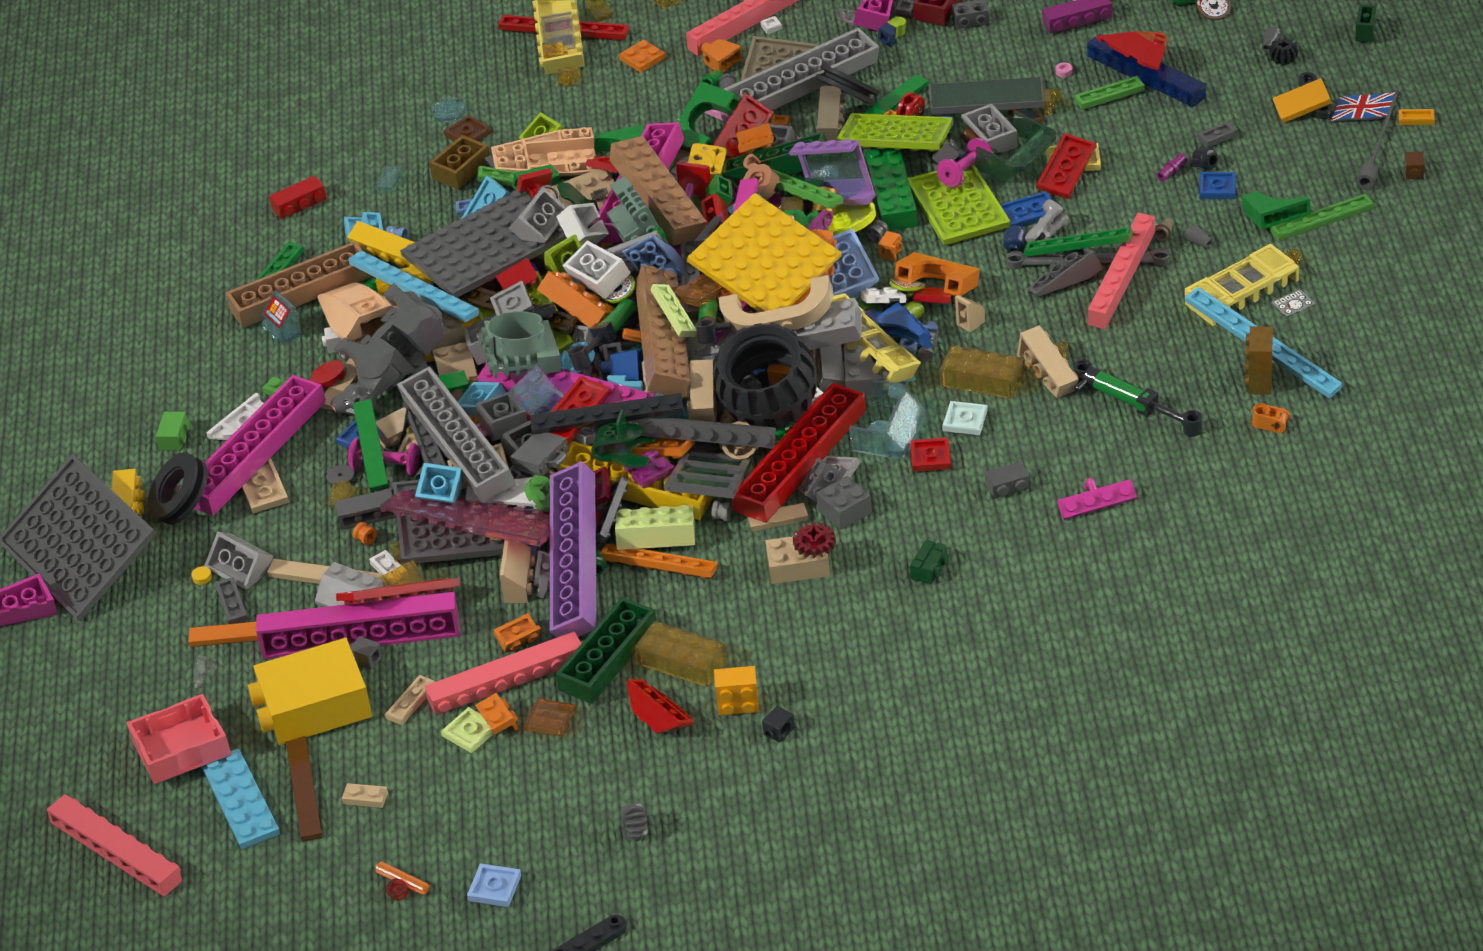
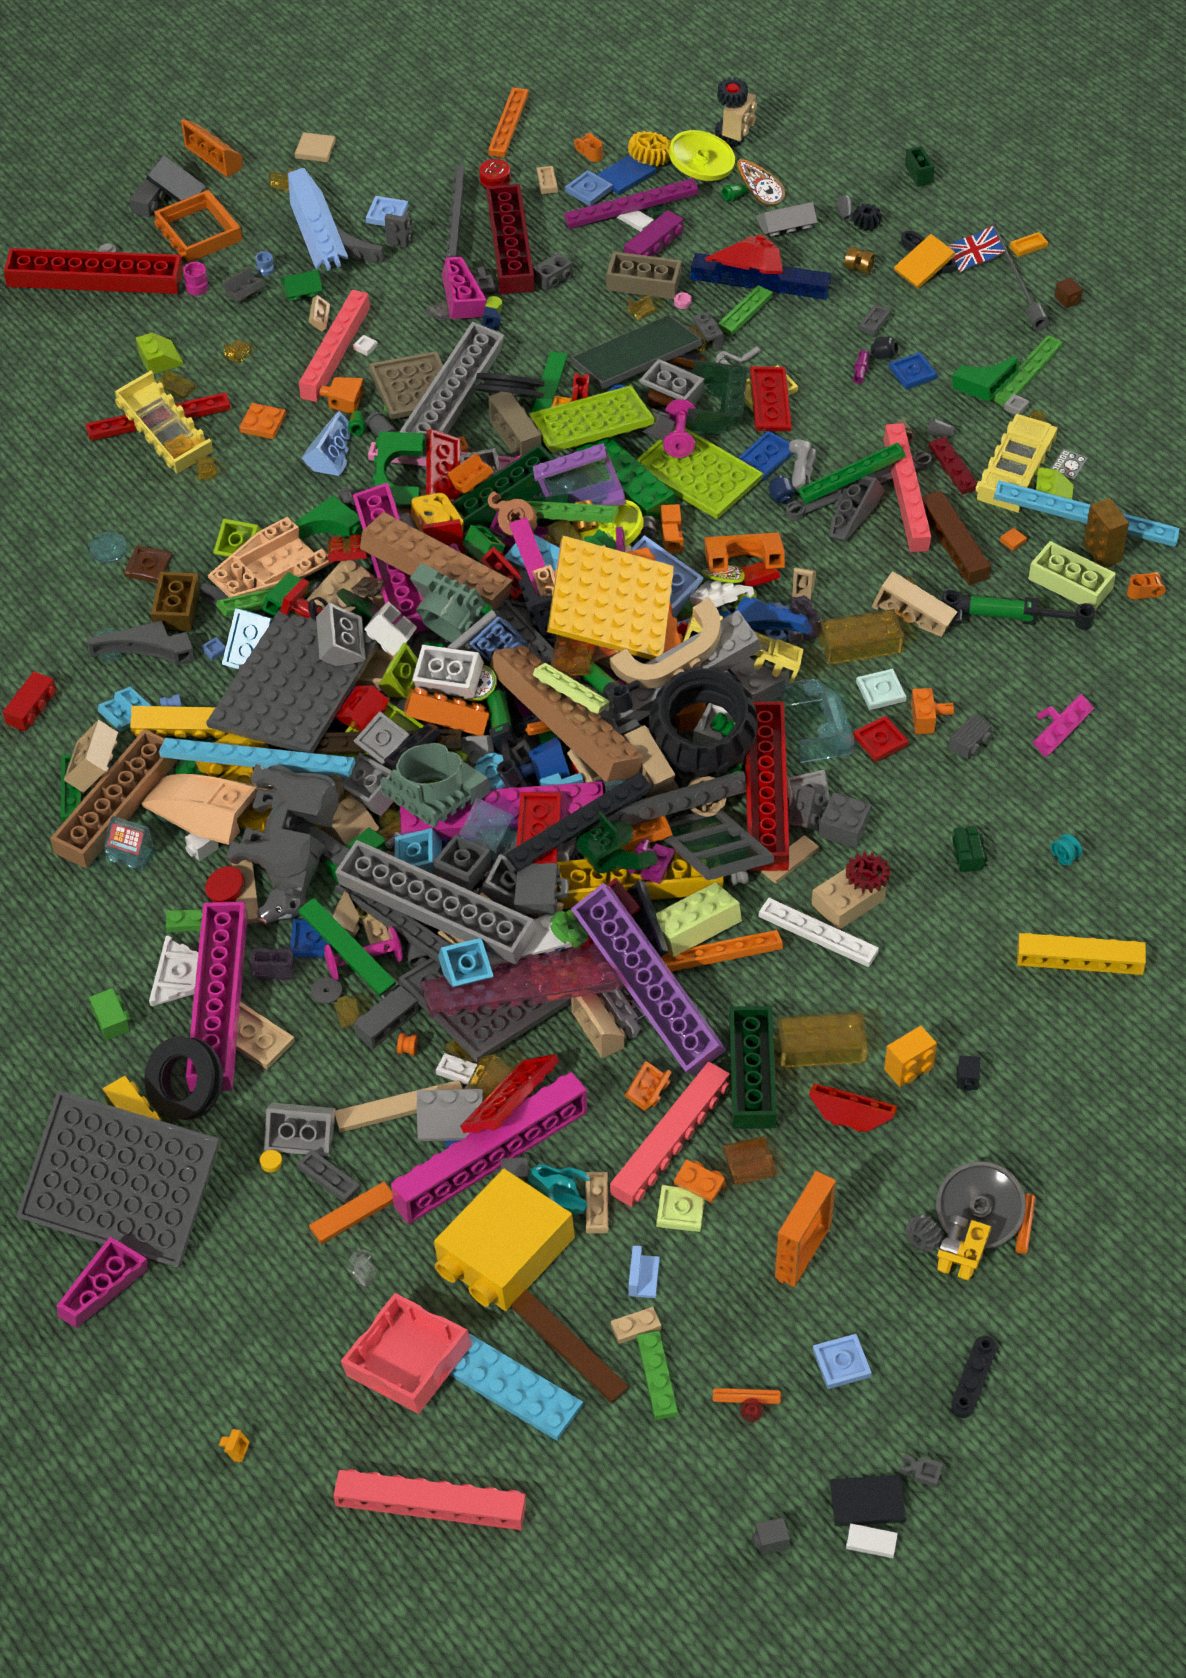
camera: 35 degrees left, 10 degrees up
(14, 750) = (235, 1445): none -> light orange tile
(302, 246) = (91, 756): none -> tan brick
(312, 439) = (270, 964): none -> clear purple brick
(350, 836) = (657, 1375): none -> bright green plate
(385, 674) = (559, 1186): none -> teal hair
(398, 761) = (643, 1274): none -> light blue panel
(418, 183) = (145, 639): none -> dark grey arch
(542, 794) = (805, 1229): none -> orange window
(656, 844) = (963, 1253): none -> yellow hips
(674, 91) = (329, 448): none -> light blue wedge
(697, 820) = (985, 1195): none -> dark grey dish
(727, 852) = (1024, 1232): none -> orange axle
(750, 577) = (818, 932): none -> white plate
(905, 228) = (671, 515): none -> orange brick
(944, 338) = (803, 606): none -> clear purple brick
(952, 674) = (1081, 953): none -> yellow brick
(984, 445) = (925, 710): none -> orange brick
(1010, 592) = (1066, 849): none -> teal wheel
(1021, 64) = (641, 307): none -> clear yellow bracket
(1042, 38) = (643, 275): none -> dark tan brick
(1055, 124) = (721, 357): none -> light grey piece
(1061, 96) = (709, 330): none -> dark grey bracket
(1132, 325) = (956, 538): none -> reddish brown brick
(1185, 268) = (953, 465): none -> dark red plate
(1186, 344) = (1013, 539): none -> orange tile
(1206, 386) = (1071, 575): none -> yellowish green brick
(1209, 31) = (787, 219): none -> light grey slope
(1243, 83) = (854, 257): none -> pearl gold wheel
(1257, 310) = (1054, 483): none -> lime slope
(1284, 240) = (1016, 404): none -> light grey plate

